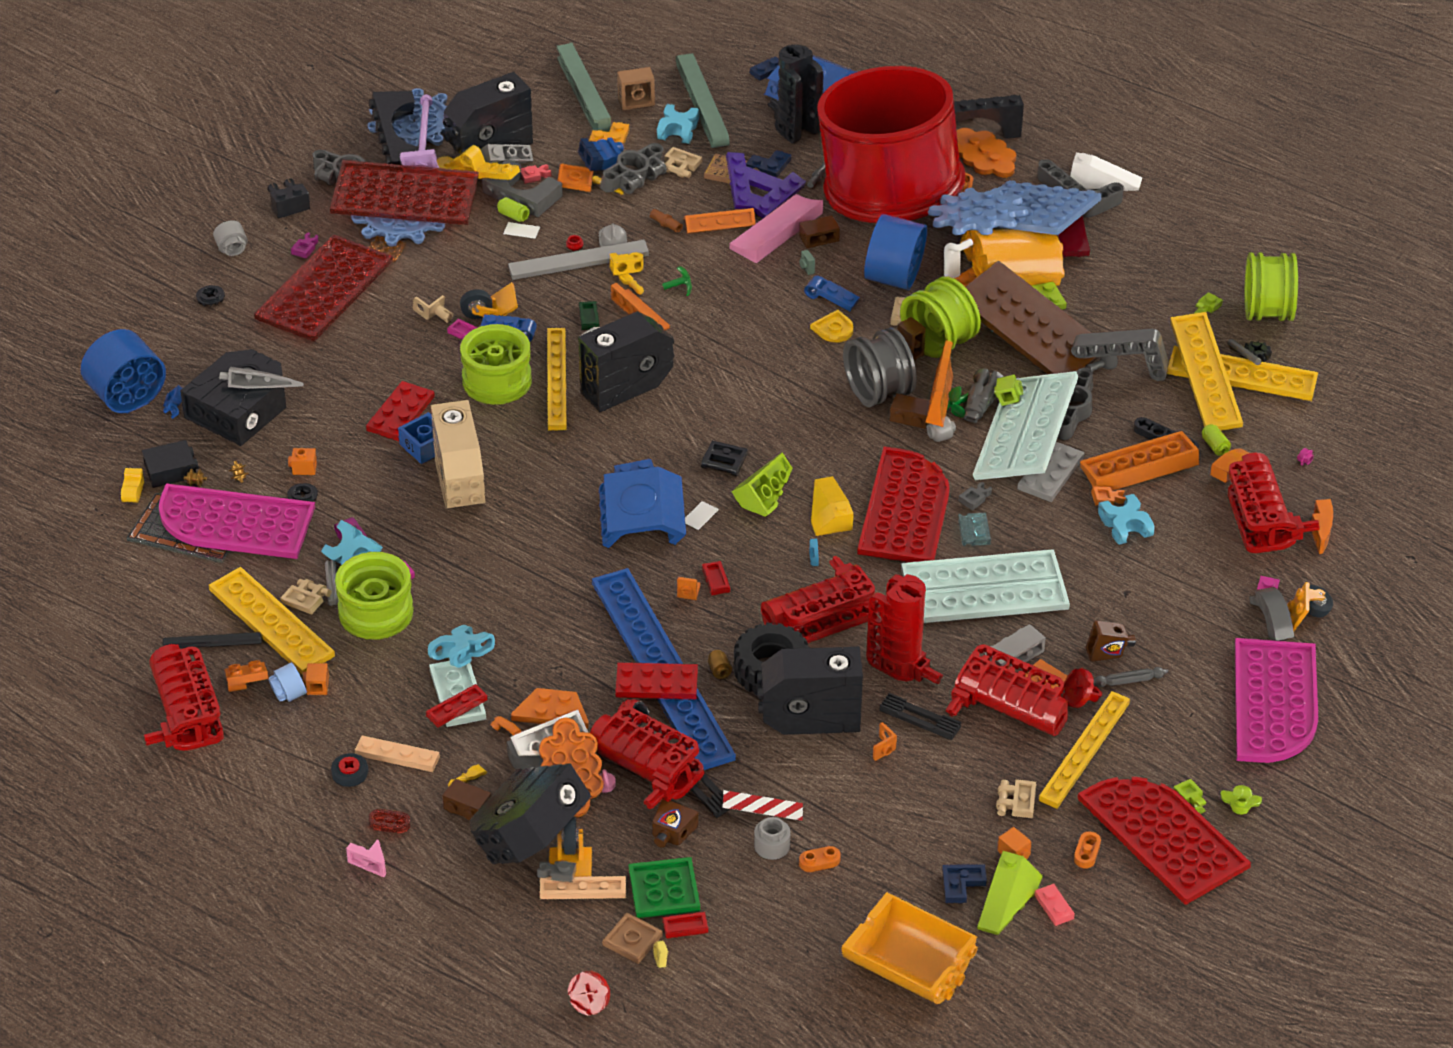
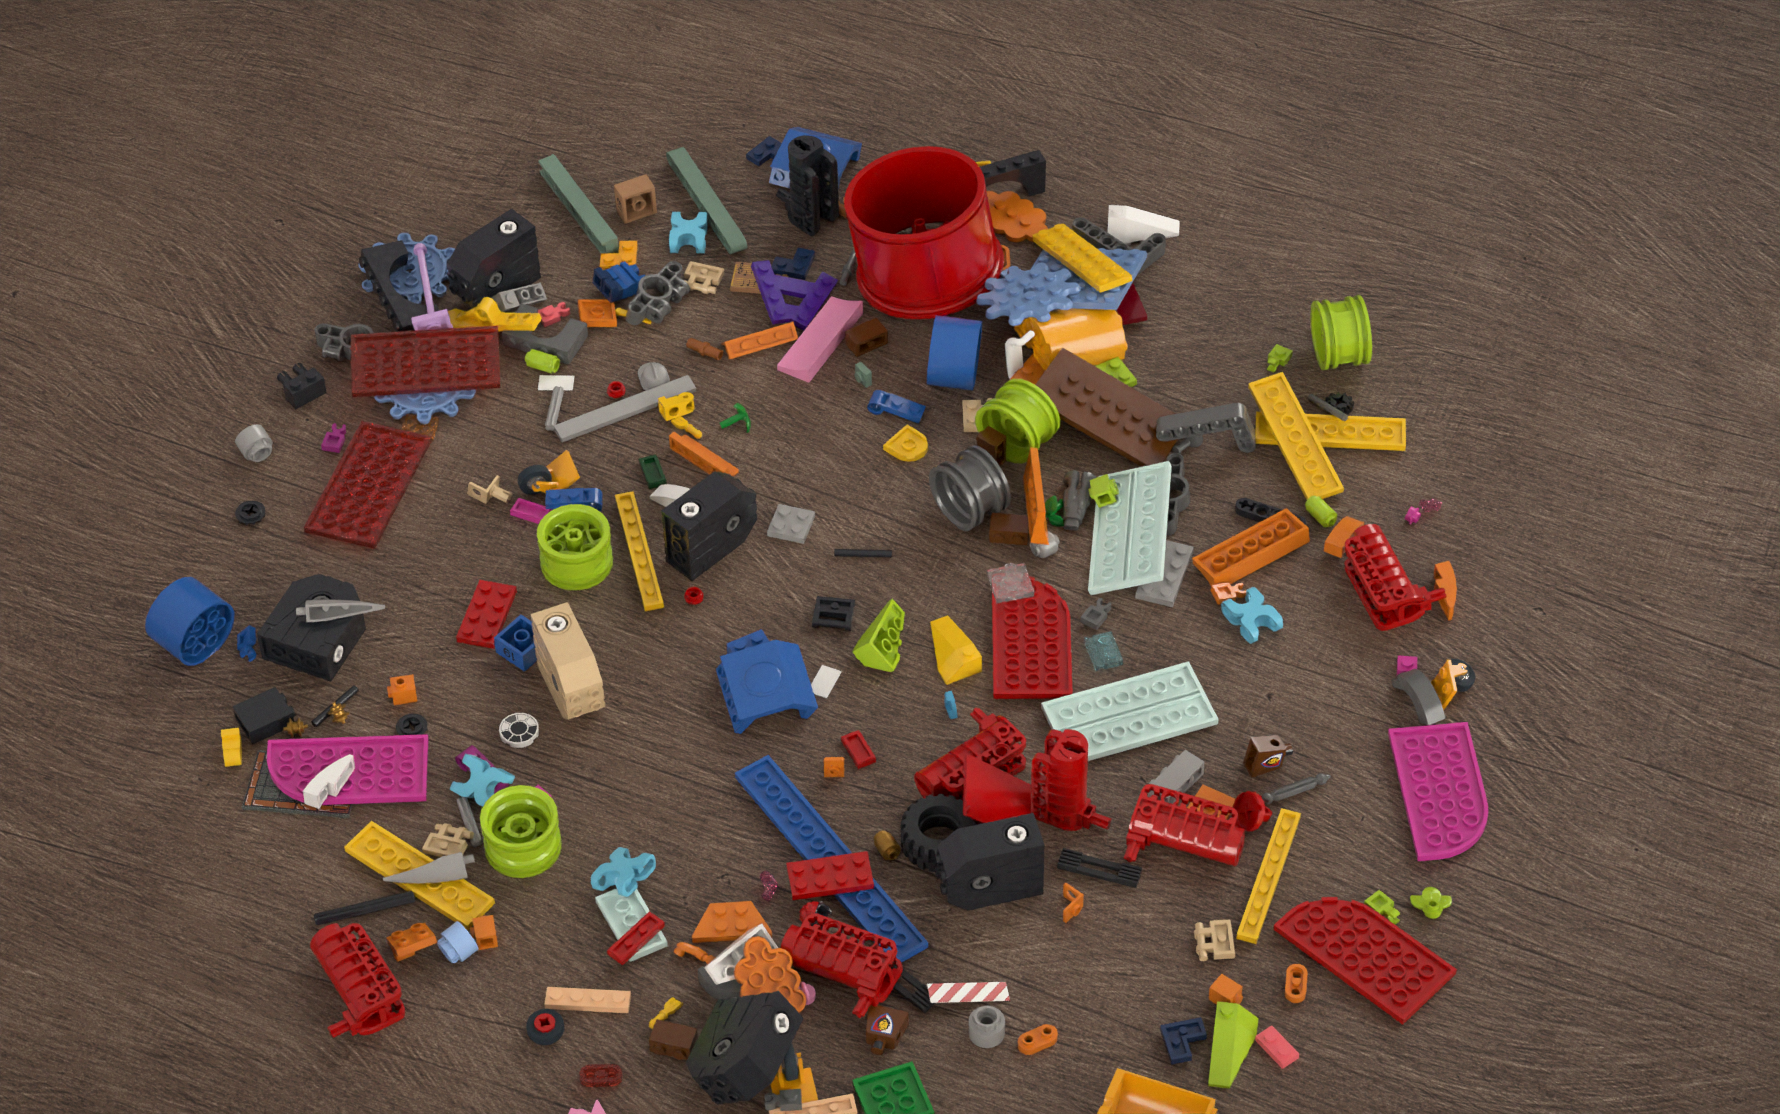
camera: 10 degrees left, 5 degrees up
(209, 525) = (328, 781): none -> white slope
(248, 461) = (342, 699): none -> black bar
(292, 616) = (440, 870): none -> light grey piece
(401, 512) = (519, 730): none -> tile
(513, 249) = (554, 408): none -> light grey axle
(597, 423) = (693, 595): none -> red plate
(598, 681) = (769, 883): none -> clear pink arm
(705, 377) = (791, 523): none -> light grey plate
(766, 411) = (862, 553): none -> black bar
(828, 626) = (992, 792): none -> red container
(898, 454) = (1009, 579): none -> clear plate
(1038, 190) = (1082, 258): none -> yellow plate
(1324, 450) = (1428, 505): none -> clear pink arm

